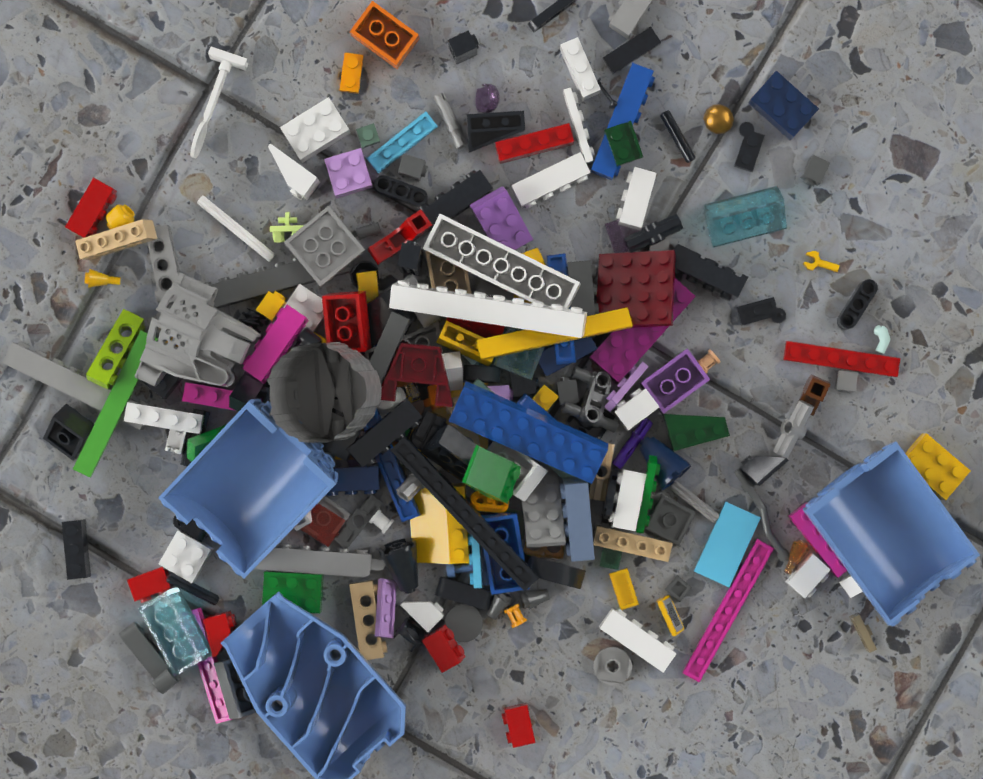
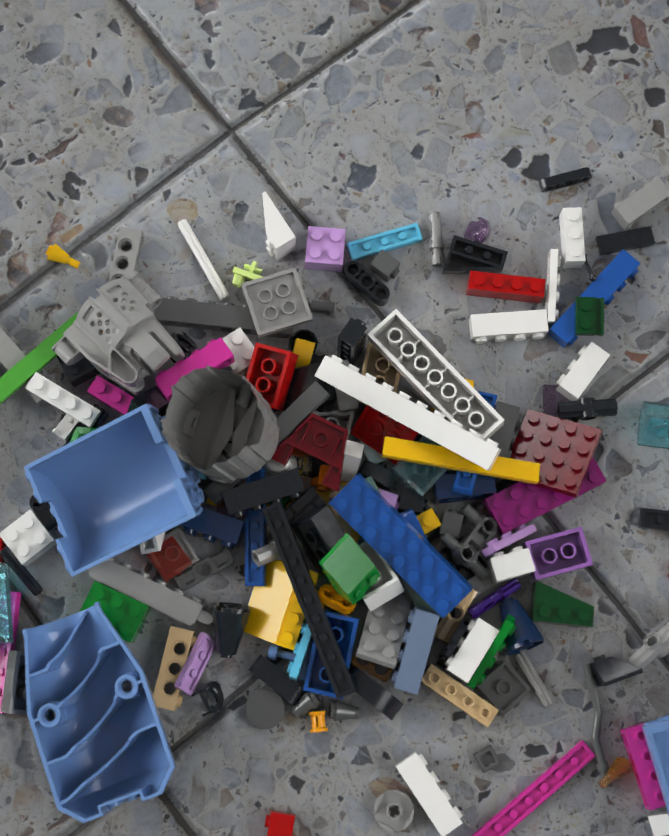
camera: 15 degrees right, 10 degrees down
(91, 208) = (80, 192): red brick -> none
(116, 239) = (90, 224): tan brick -> none
(119, 216) = (102, 210): yellow head -> none
(125, 322) = (35, 323): lime brick -> none
(218, 628) = (27, 617): red slope -> none
(227, 61) = (256, 112): white piece -> none
(271, 305) = (205, 333): yellow brick -> none
(315, 130) = (310, 200): white brick -> none
(351, 73) = (363, 165): light orange plate -> none
(368, 135) = (356, 224): sand green plate -> none
(381, 521) = (226, 578): white bush -> none
(384, 35) = (406, 142): orange brick -> none
(410, 230) = (331, 327): red arch -> none
(424, 612) = (231, 683): white slope -> none
(444, 648) = (236, 726): red brick -> none
(458, 198) = (417, 309): black brick -> none
(461, 340) = (370, 434): yellow brick -> none
(463, 46) = (473, 177): black brick -> none
(501, 219) = (450, 338): medium lavender brick -> none
(610, 558) = (432, 702): clear green plate -> none
(623, 589) = (433, 737): yellow tile -> none
(670, 615) = (469, 782): slope -> none
(677, 136) = (640, 332): black axle -> none
(708, 273) = (626, 466): black wedge -> none
(708, 361) = (597, 547): light nougat bush -> none
(727, 544) = (550, 734): medium azure tile -> none
(808, 576) = (620, 797): white brick -> none

